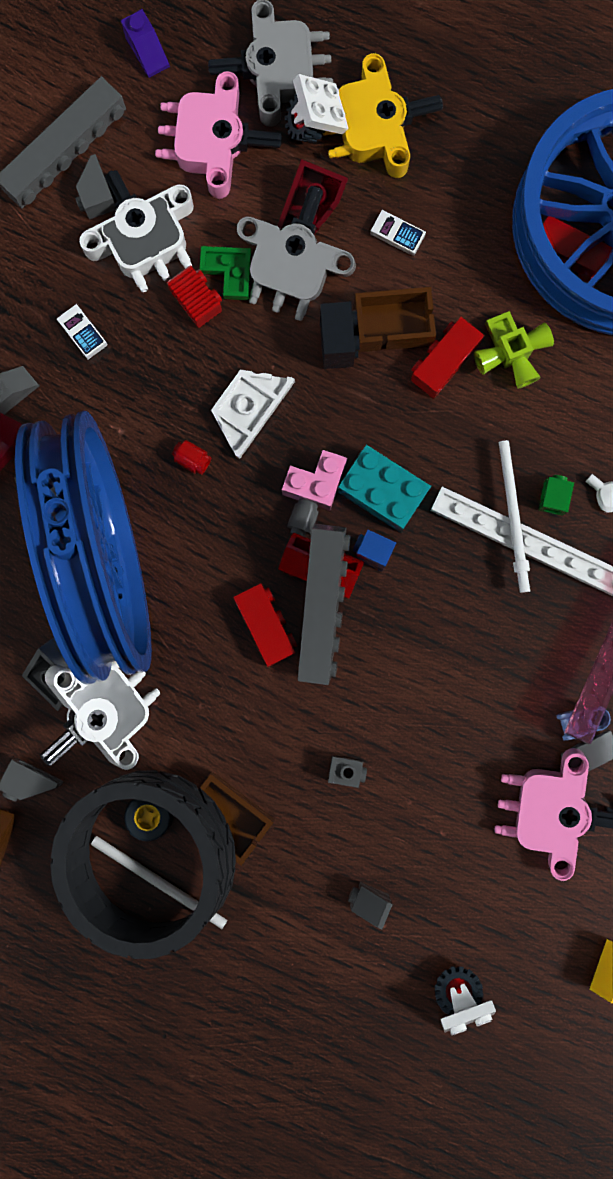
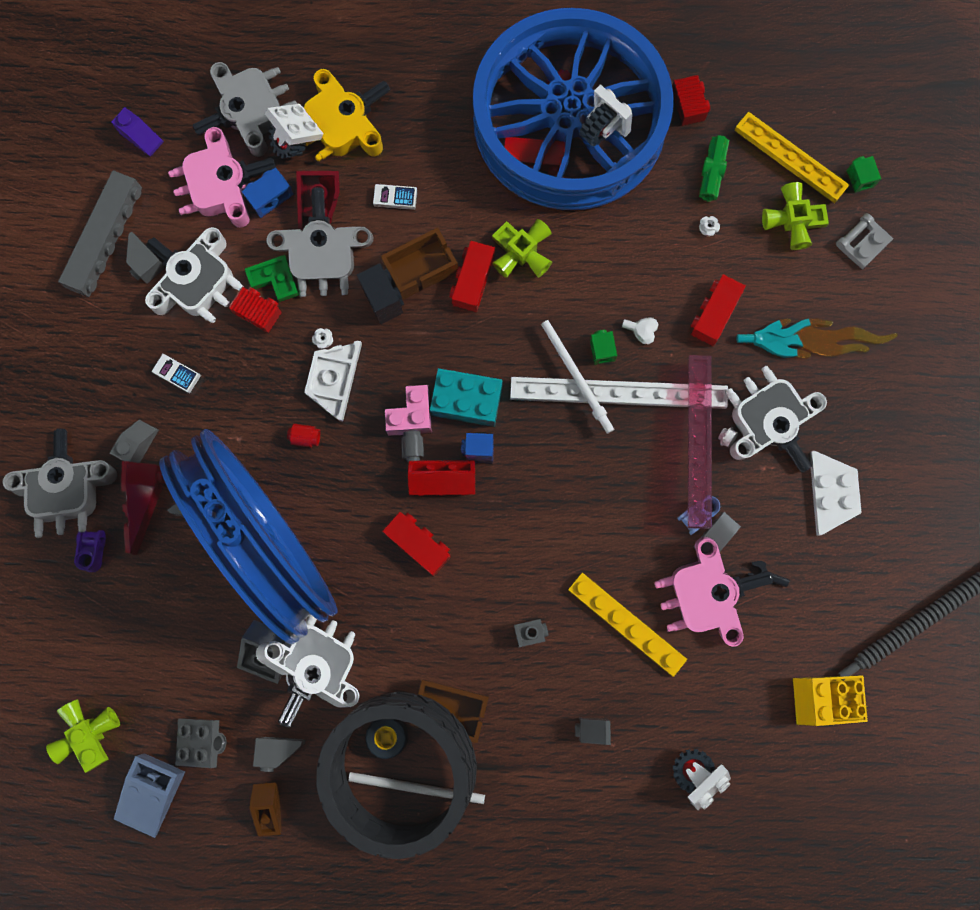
camera: 20 degrees left, 5 degrees down
(254, 364) = (328, 340): none -> white plate
(260, 170) = (267, 192): none -> blue brick
(322, 603) = (455, 506): dark grey brick -> none
(453, 806) = (627, 624): none -> yellow plate

